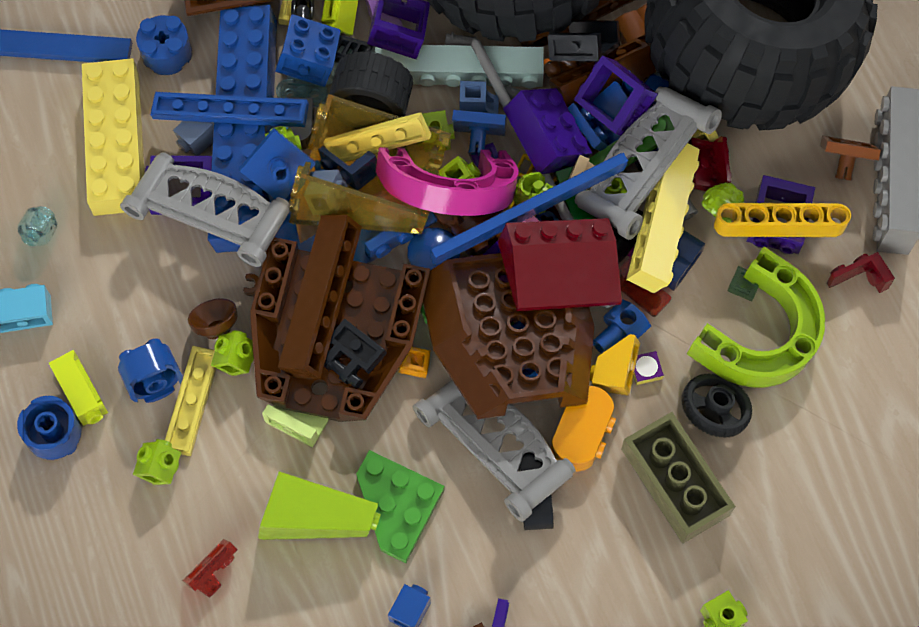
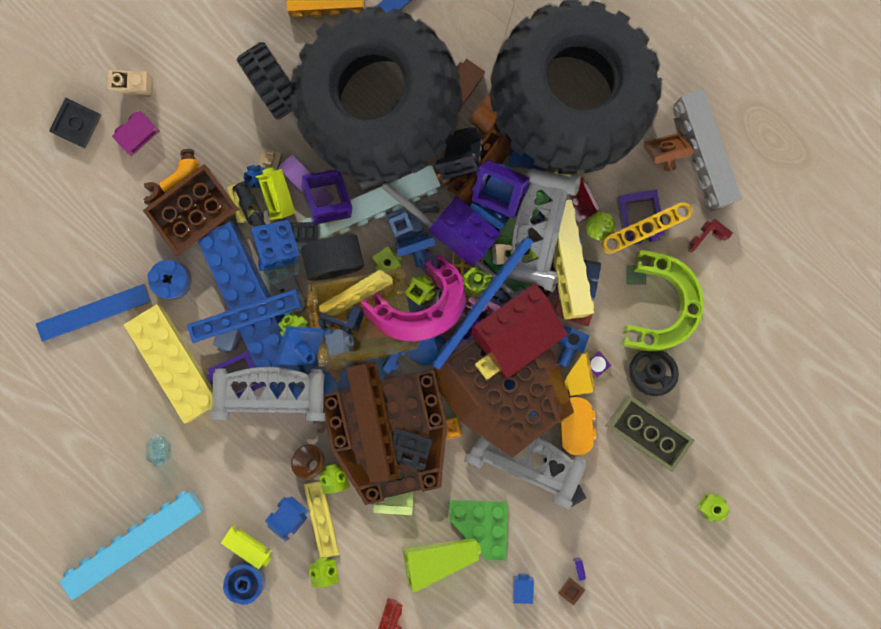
camera: 25 degrees left, 20 degrees up
(499, 289) = (487, 367): none -> light yellow tile

